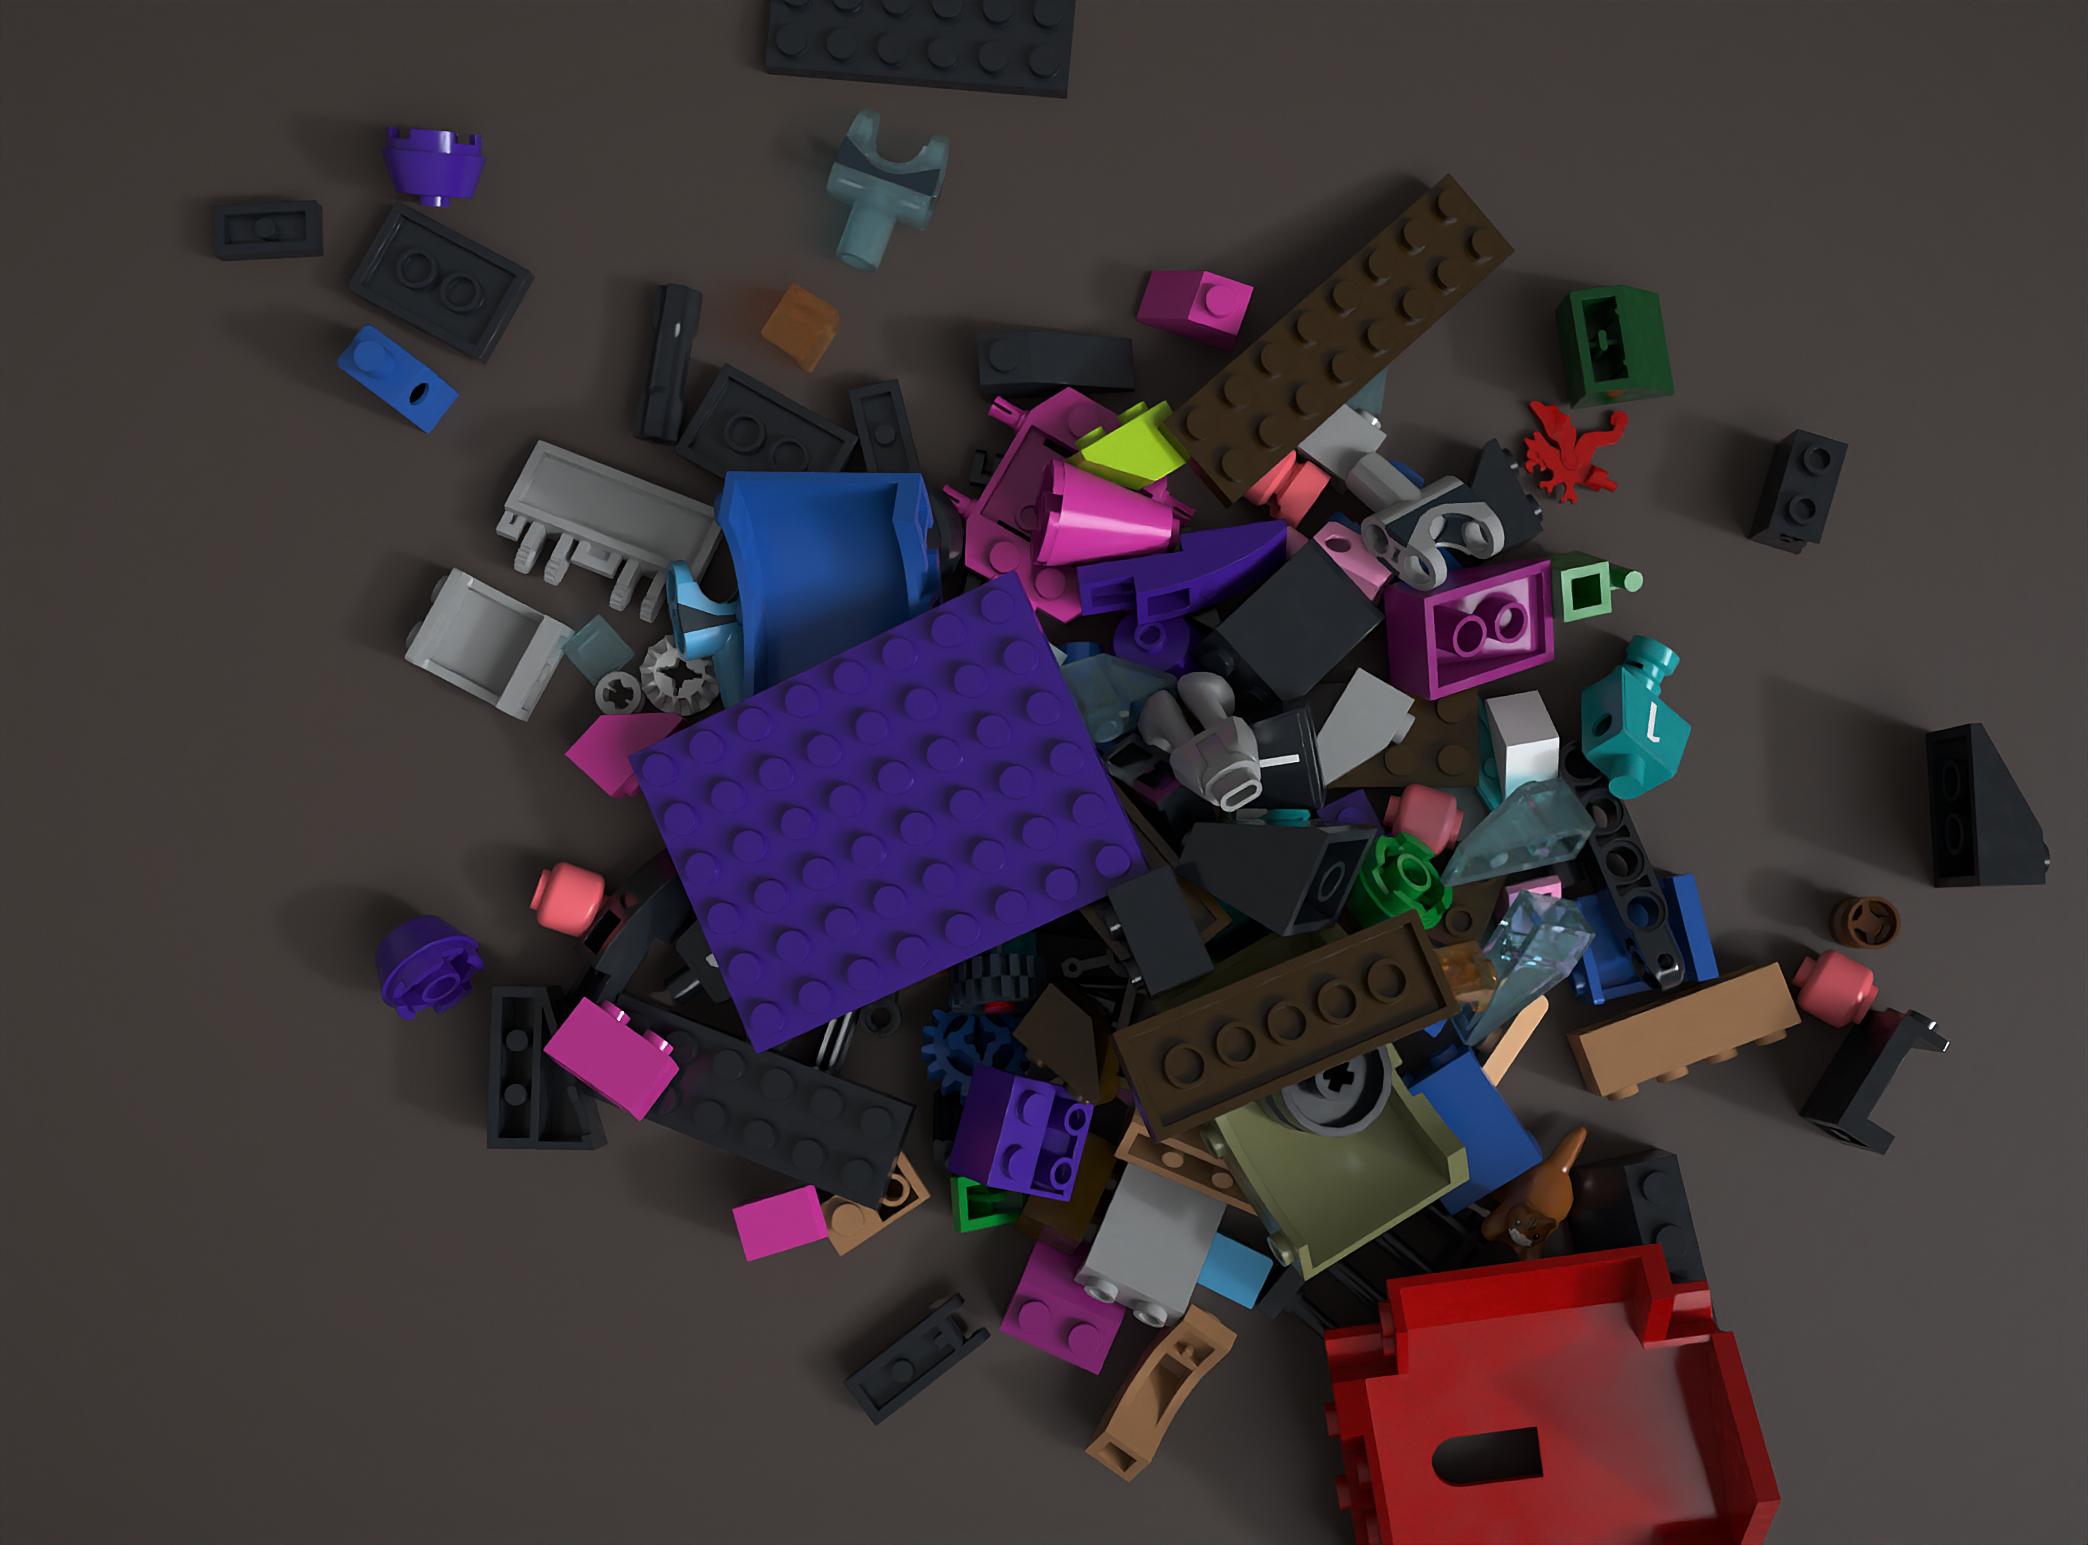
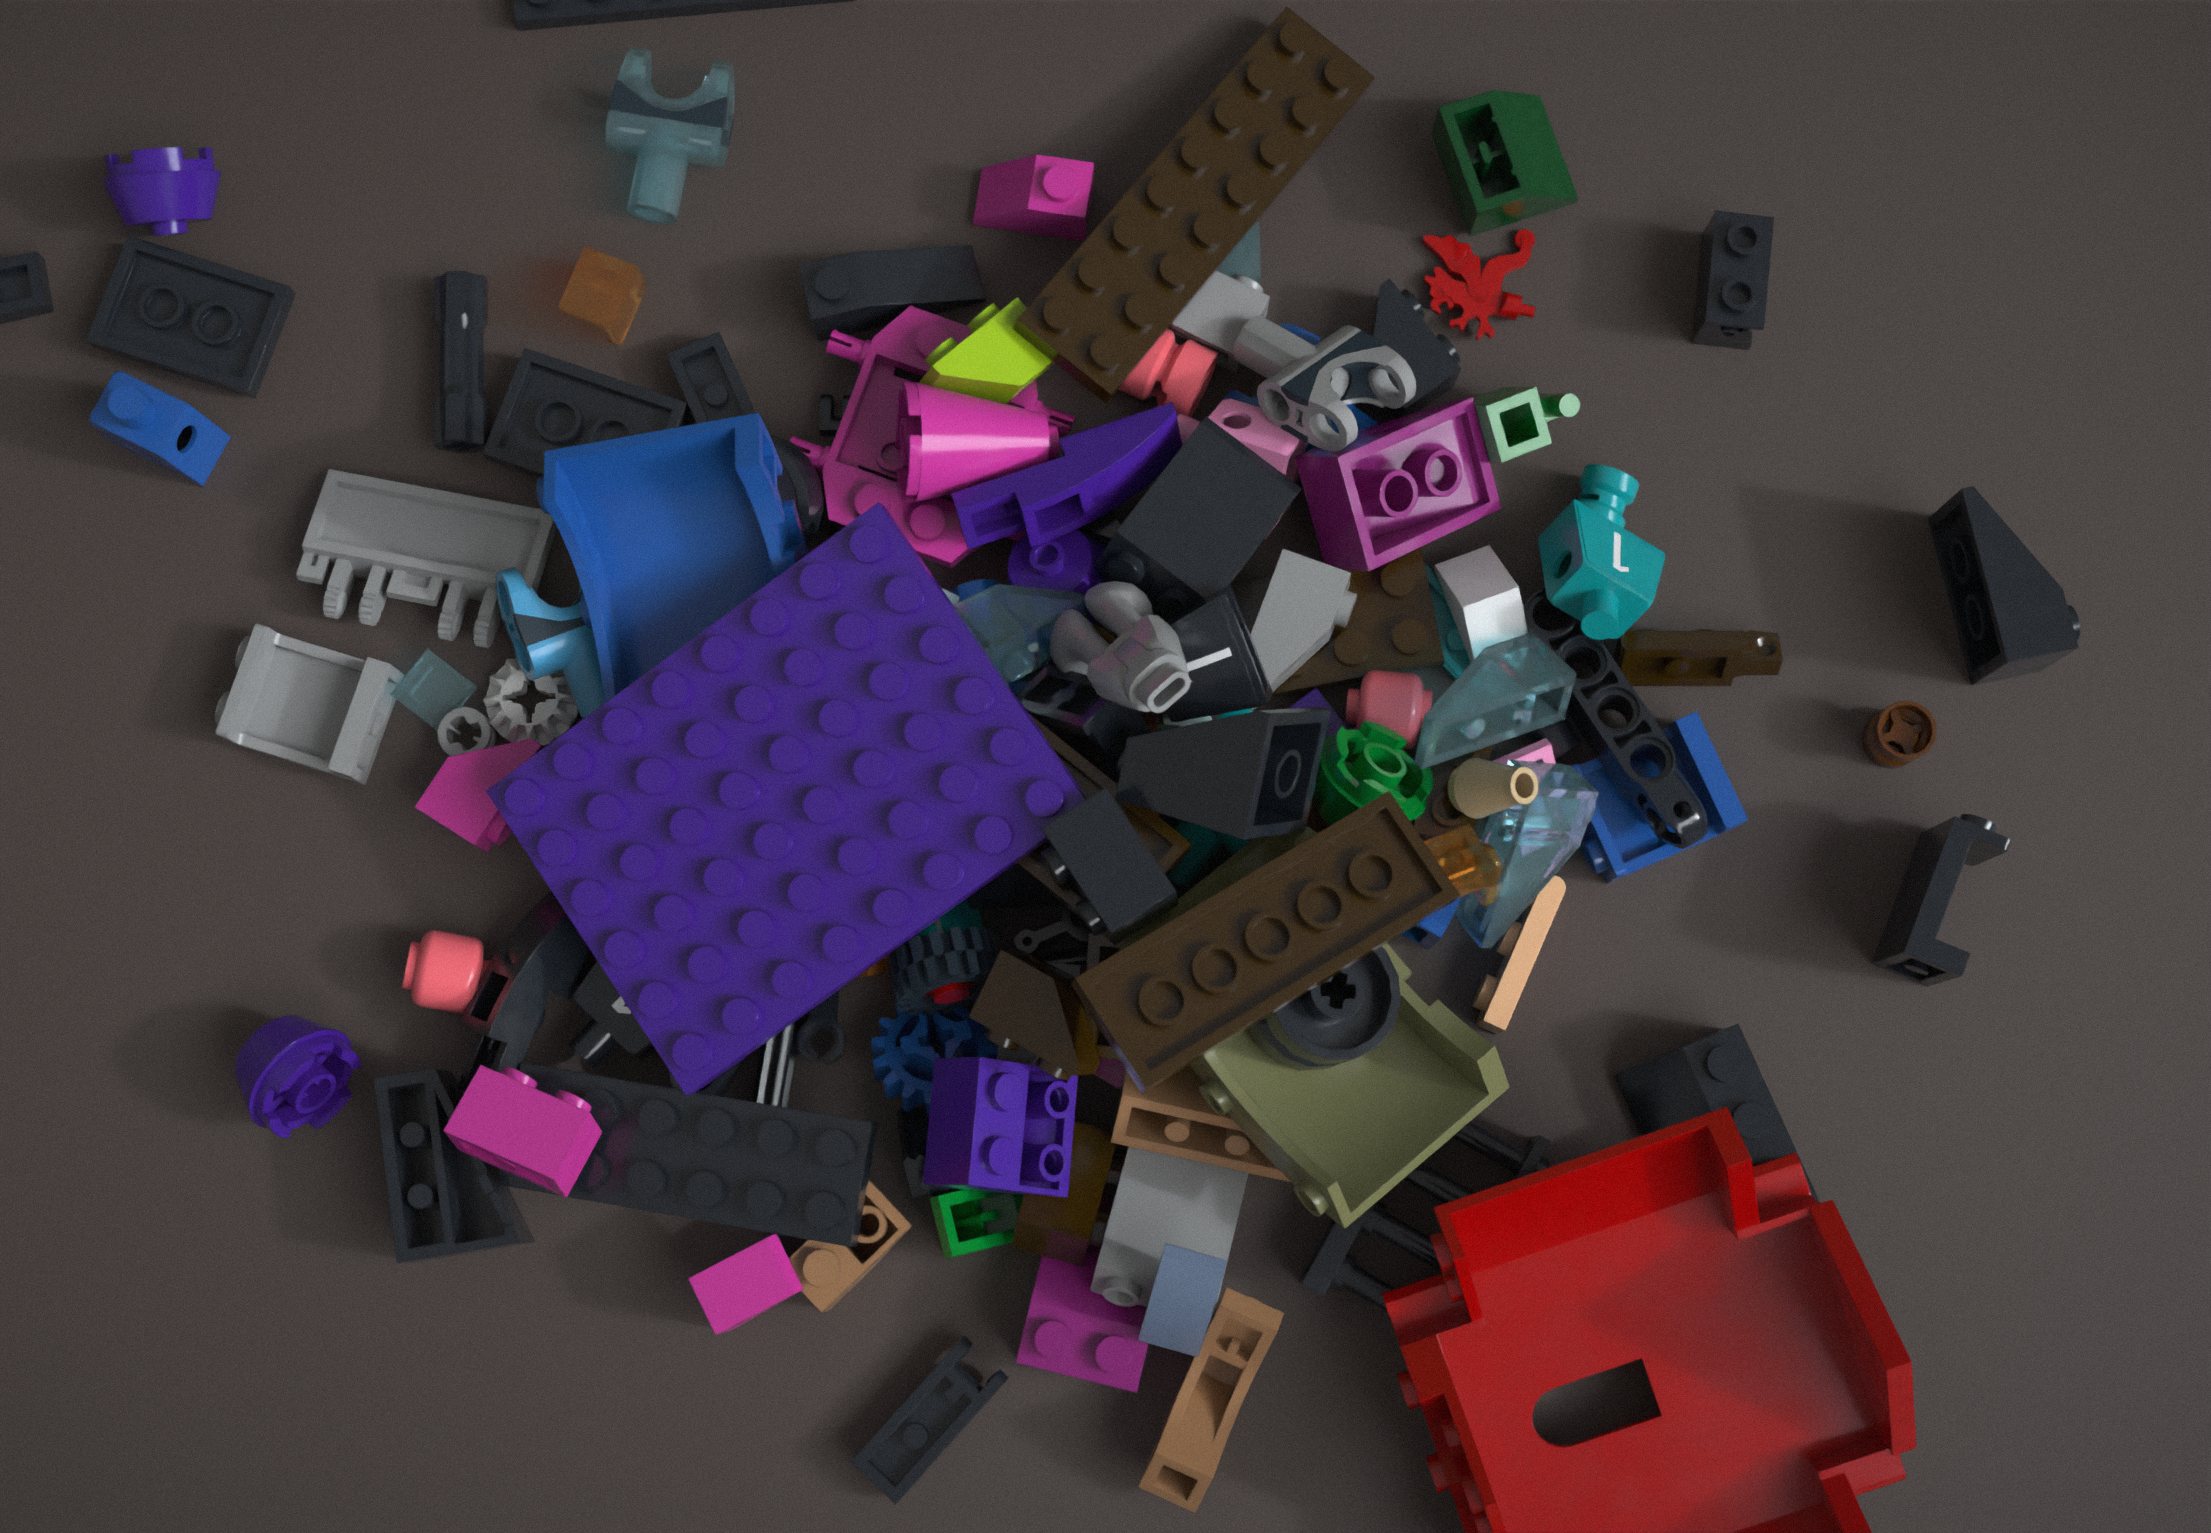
camera: 15 degrees left, 5 degrees down
(1152, 1310) = (1182, 1299): none -> sand blue slope
(1234, 1269) = (1269, 1247): dark azure panel -> none
(1481, 1120) = (1528, 1038): blue panel -> none
(1499, 912) = (1489, 787): none -> tan cone
(1535, 1201) = (1591, 1101): dark orange animal -> none
(1684, 1029) = (1722, 888): medium nougat brick -> none
(1701, 822) = (1696, 656): none -> dark brown hinge
(1835, 988) = (1881, 812): coral head -> none

